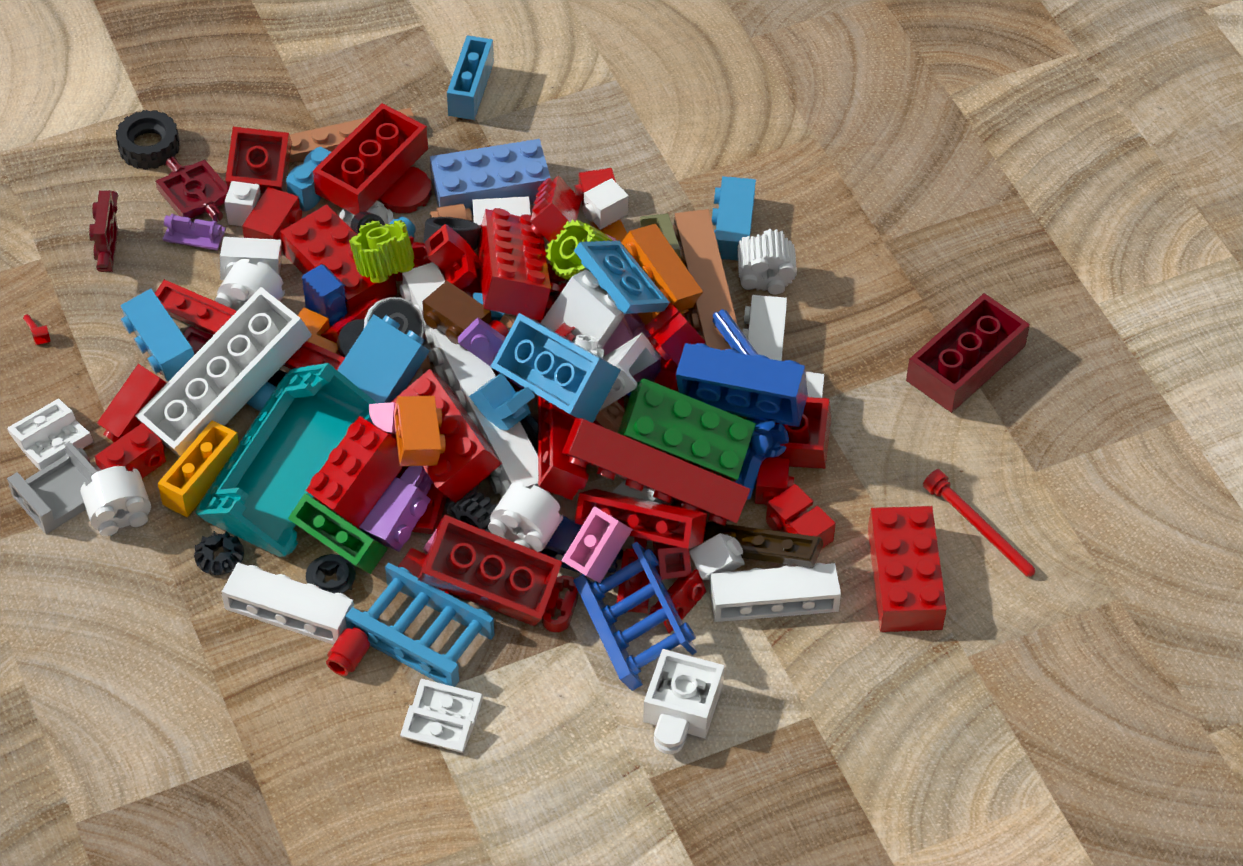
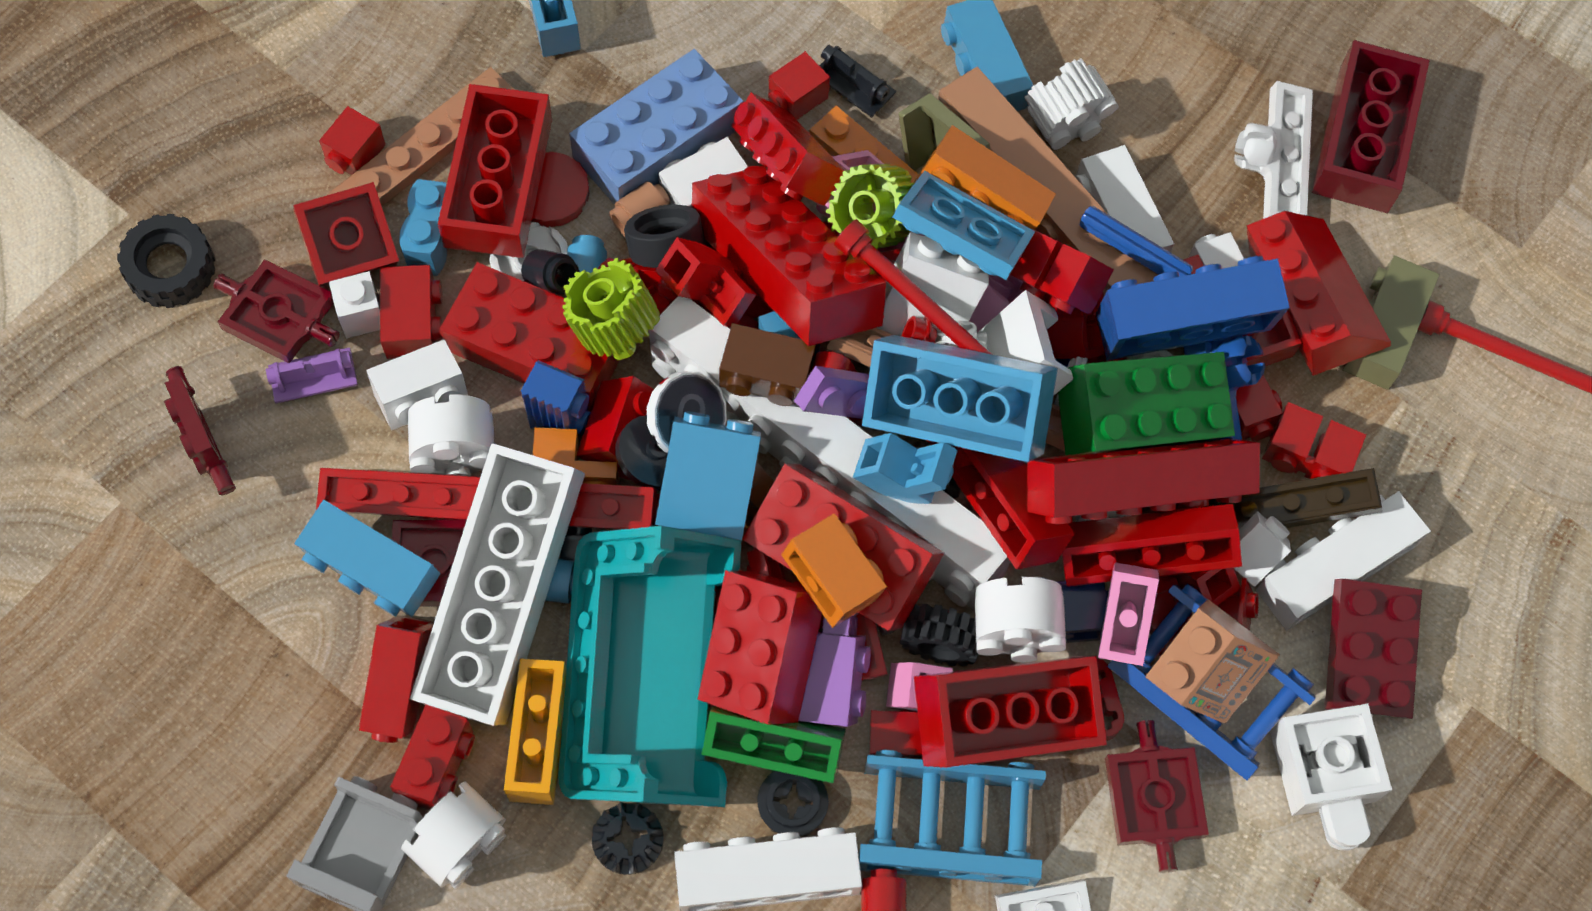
camera: 30 degrees left, 15 degrees up
(40, 334) = (192, 622): red hand -> none
(46, 432) = (295, 769): white slope -> none
(297, 115) = (351, 142): none -> red brick
(383, 416) = (761, 557): bright pink tile -> none
(546, 259) = (856, 242): none -> red piece
(560, 670) = (1156, 796): none -> dark red plate
(605, 203) = (834, 108): white brick -> none
(631, 592) = (1212, 664): none -> nougat slope
(639, 199) = (855, 81): none -> black hinge
(759, 645) = (1373, 647): none -> dark red plate
(858, 427) = (1321, 290): none -> red slope
(895, 346) = (1281, 149): none -> white plate
(903, 471) = (1399, 303): none -> olive brick
(906, 569) = (1473, 454): red brick -> none

